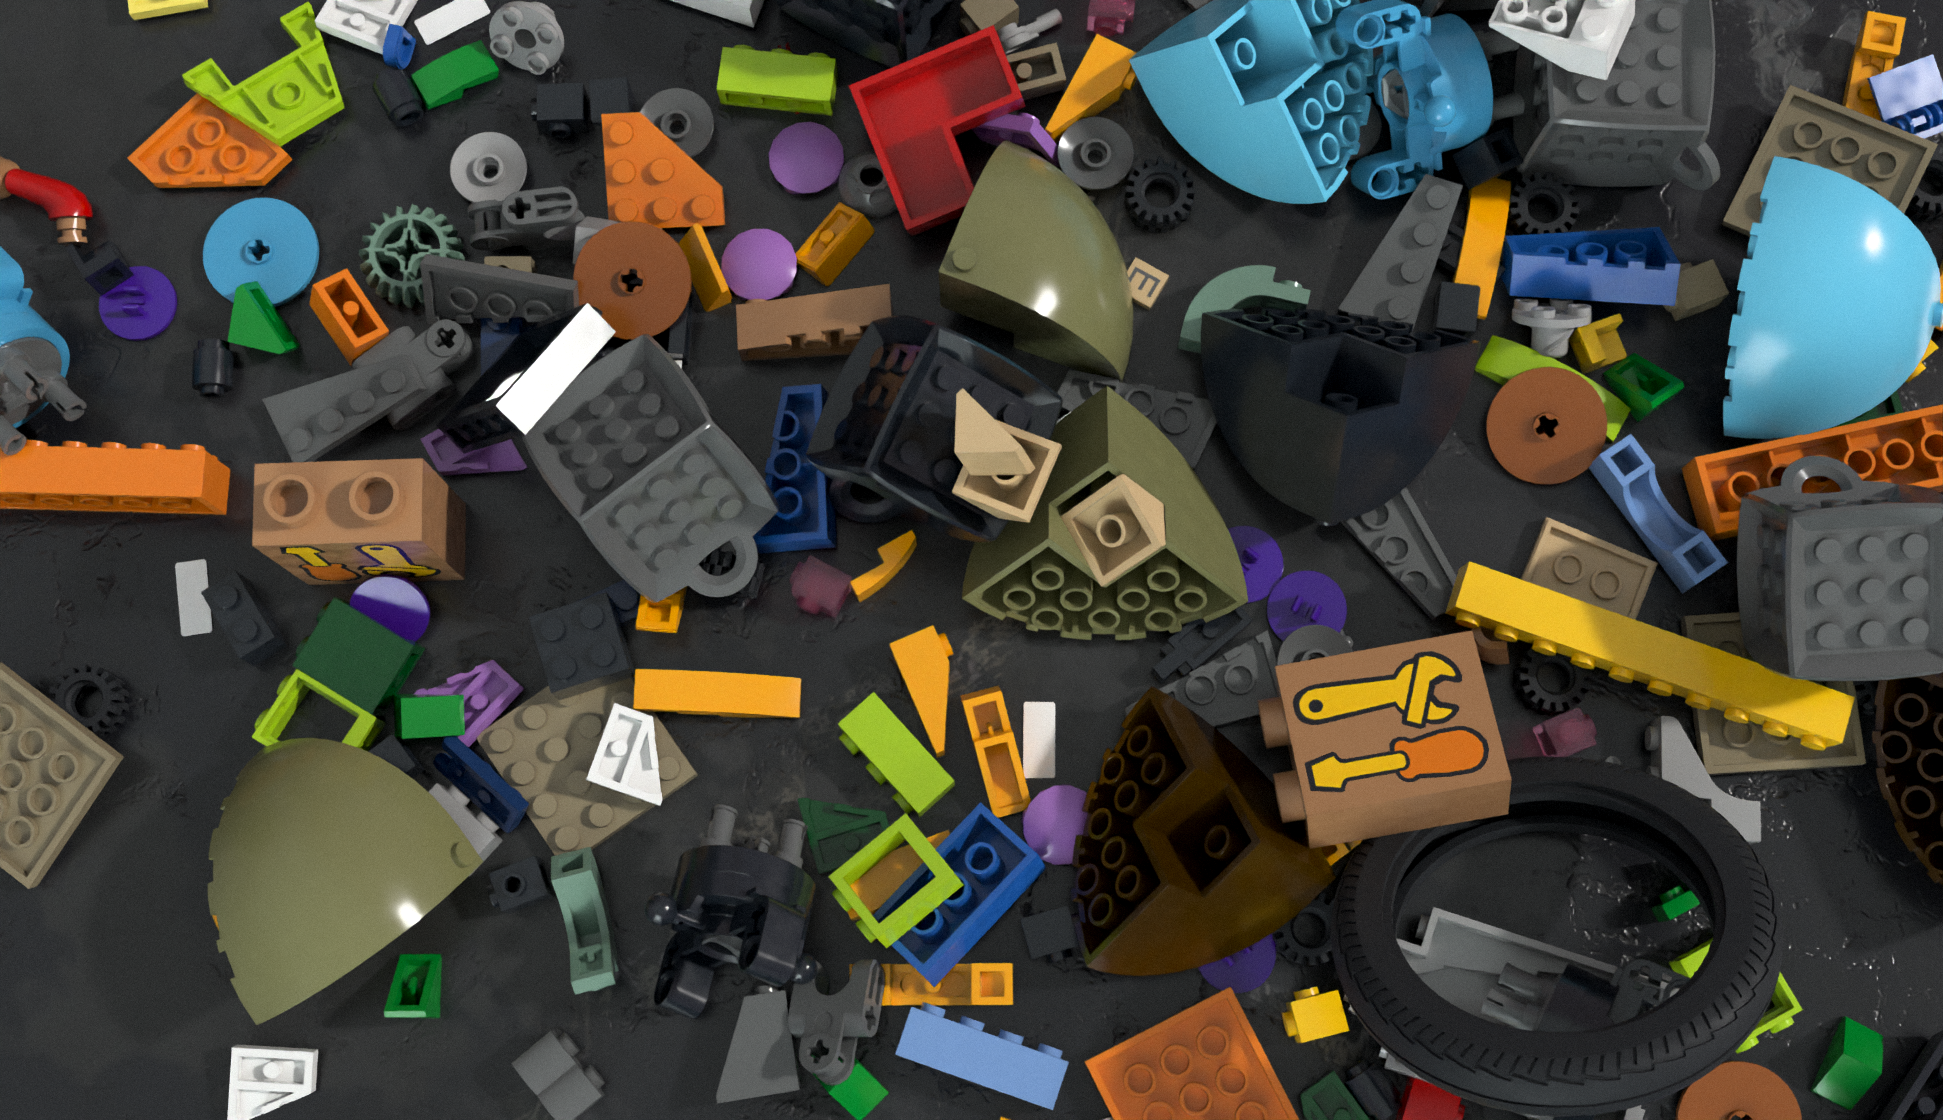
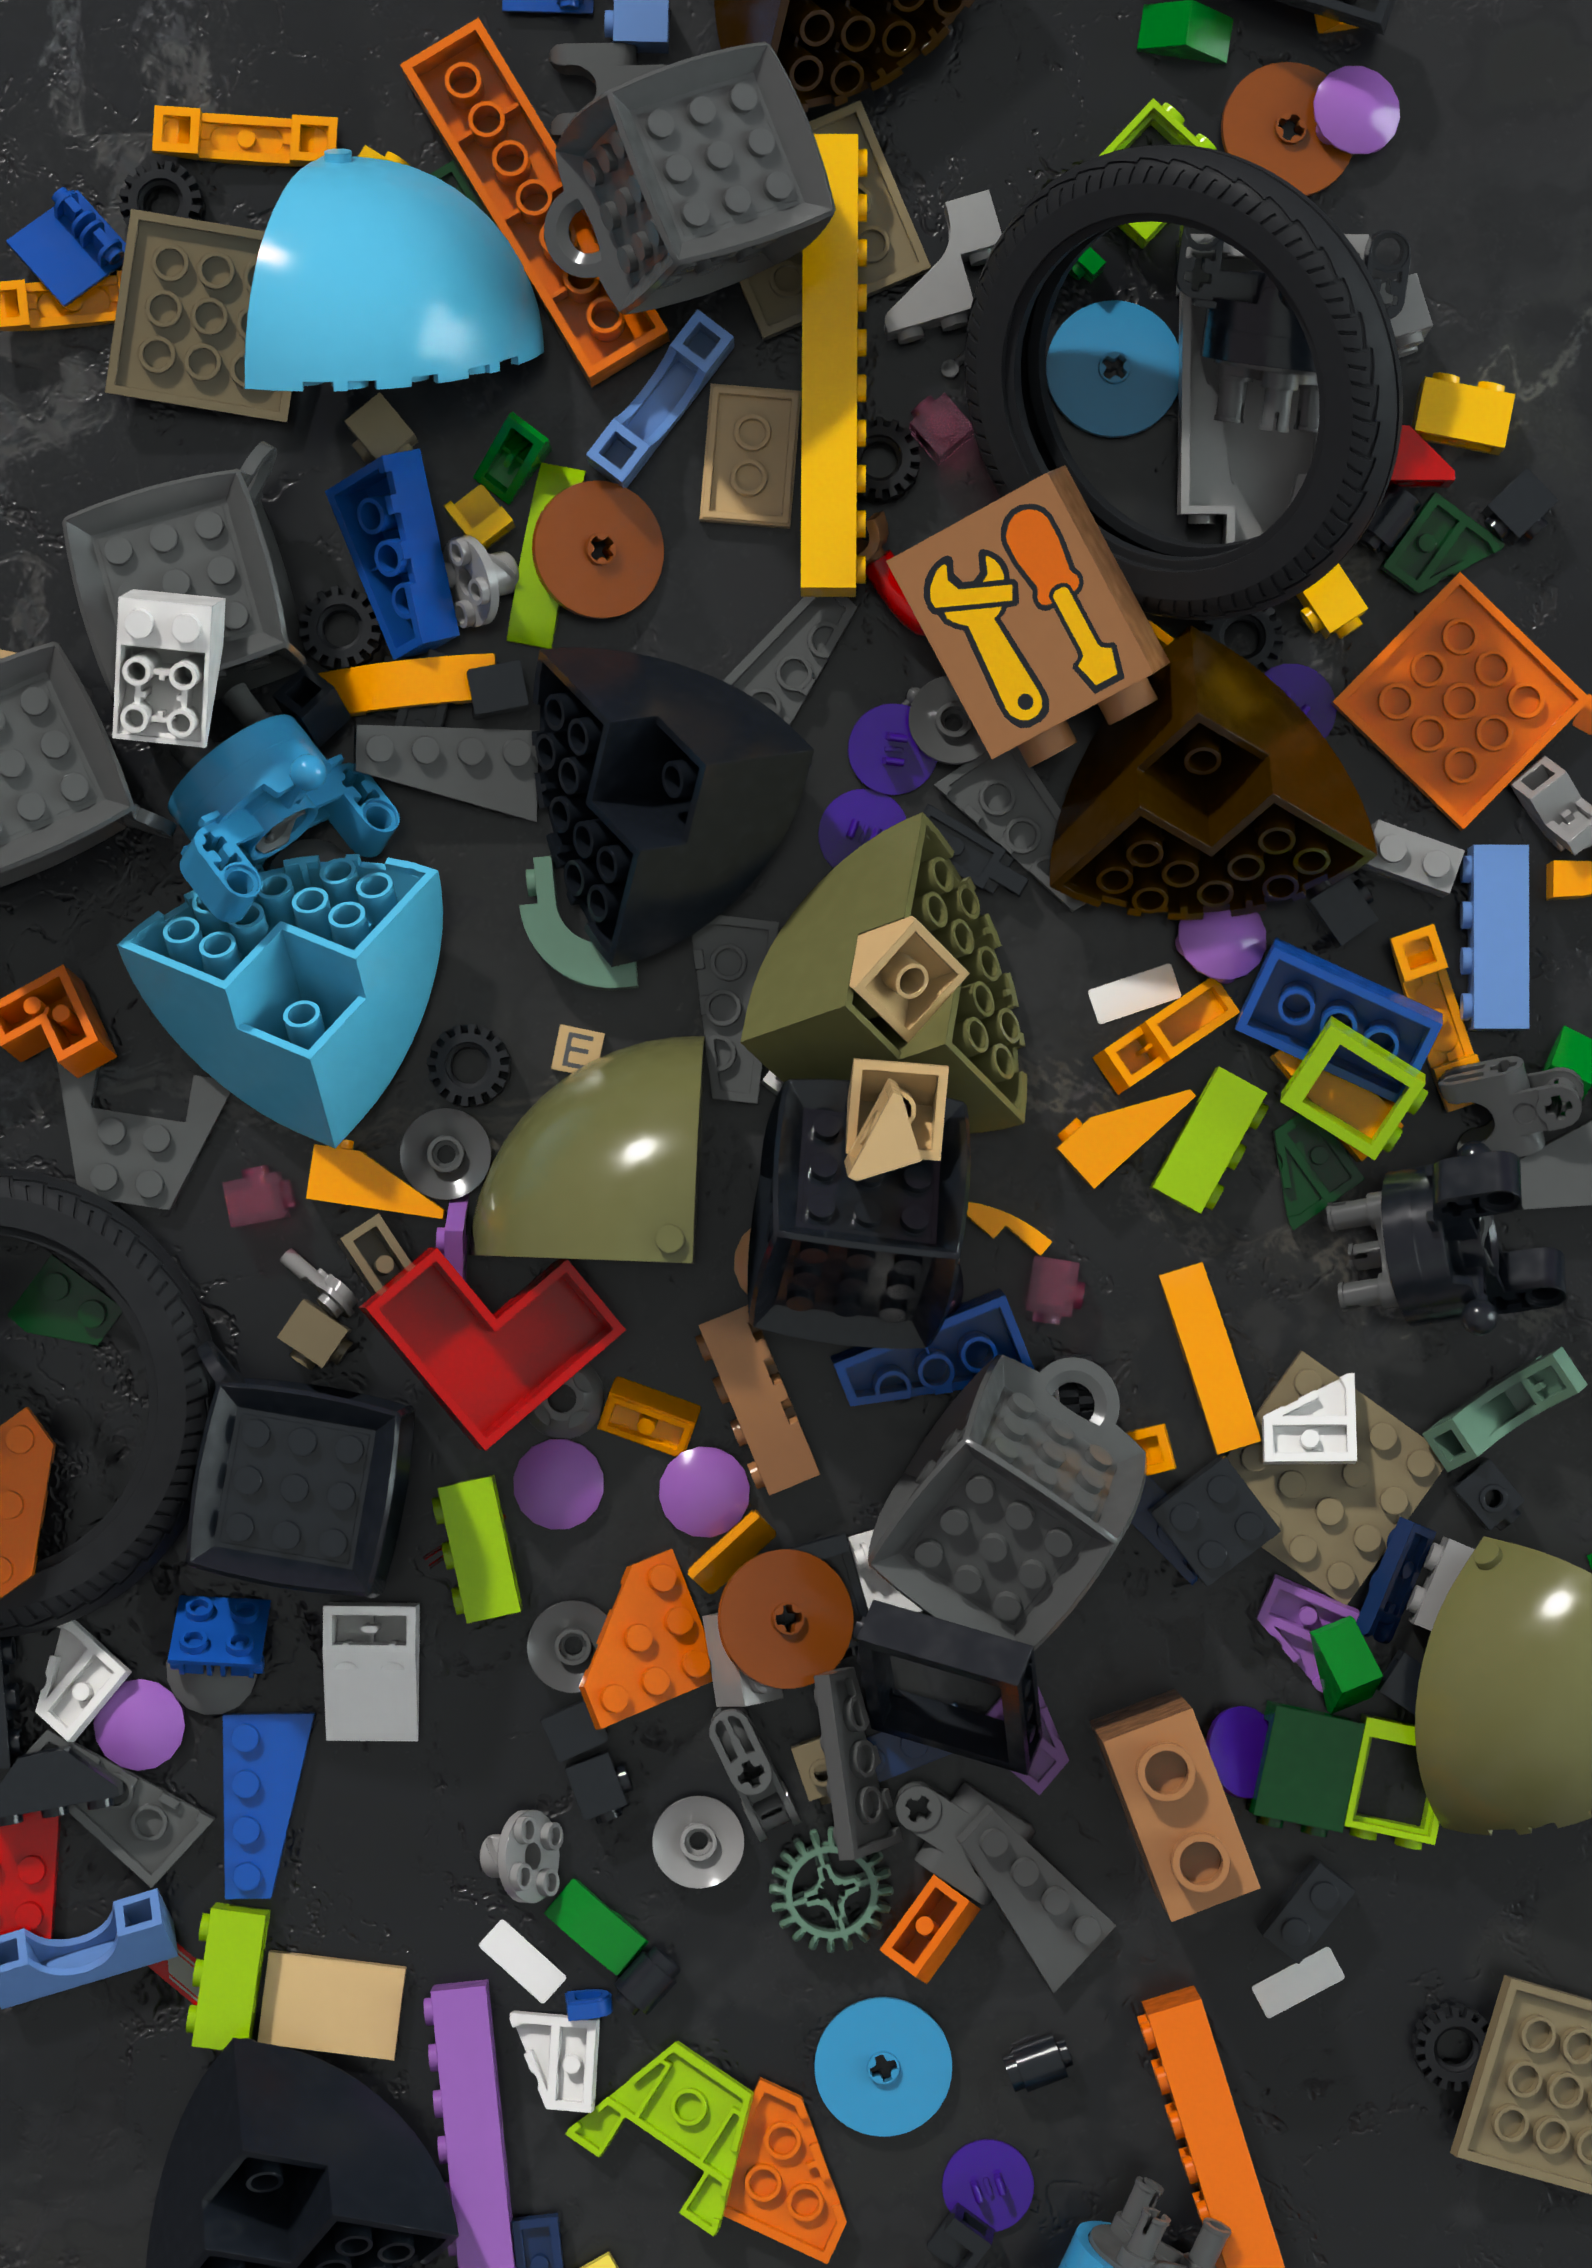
camera: 110 degrees left, 10 degrees up
(258, 323) = (972, 2027): green slope -> none
(1074, 1007) = (1414, 859): none -> light grey brick
(1581, 869) = (1111, 333): none -> dark azure piece

